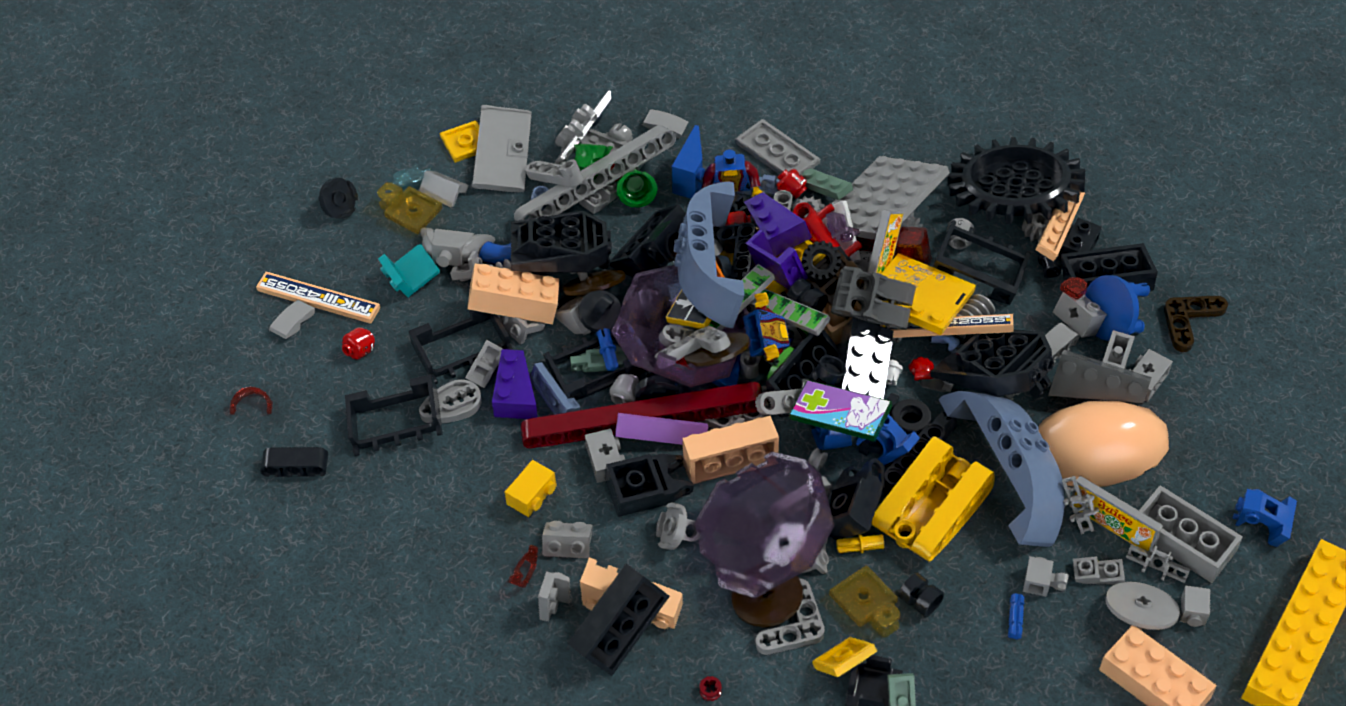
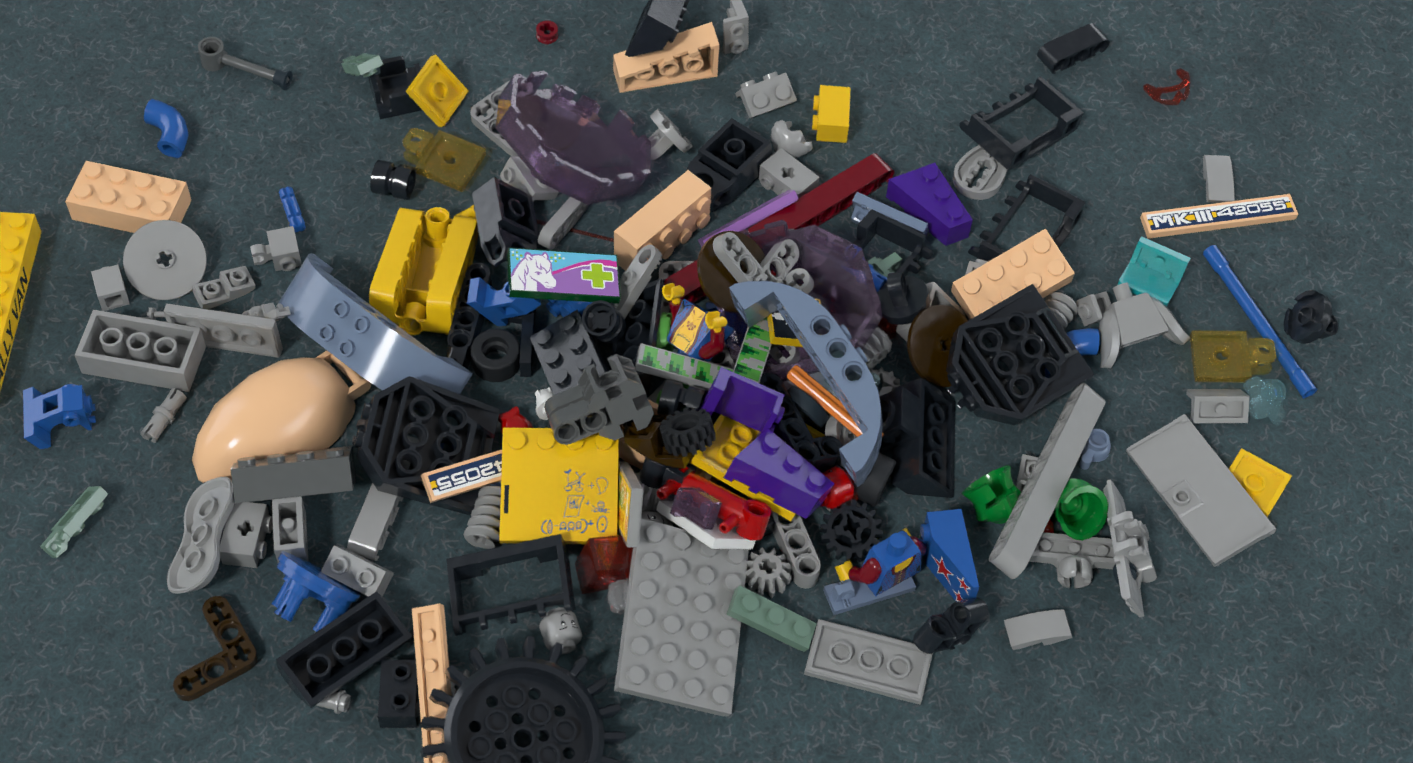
camera: 145 degrees right, 5 degrees up
(353, 263) = (1296, 374): none -> blue piece
(358, 343) = (1127, 179): red head -> none
(485, 364) = (984, 217): light grey slope -> none
(531, 557) = (779, 28): clear red helmet -> none
(566, 174) = (1072, 447): light grey beam -> none
(580, 481) = (790, 141): none -> light grey hair
(720, 138) = (951, 627): none -> black piece
(792, 182) = (813, 601): red head -> none
(1074, 287) = (371, 574): clear red tile -> none
(1173, 389) = (200, 546): none -> light grey plate
(1182, 486) = (163, 415): none -> light grey pin
(1268, 438) = (73, 520): none -> sand green hinge

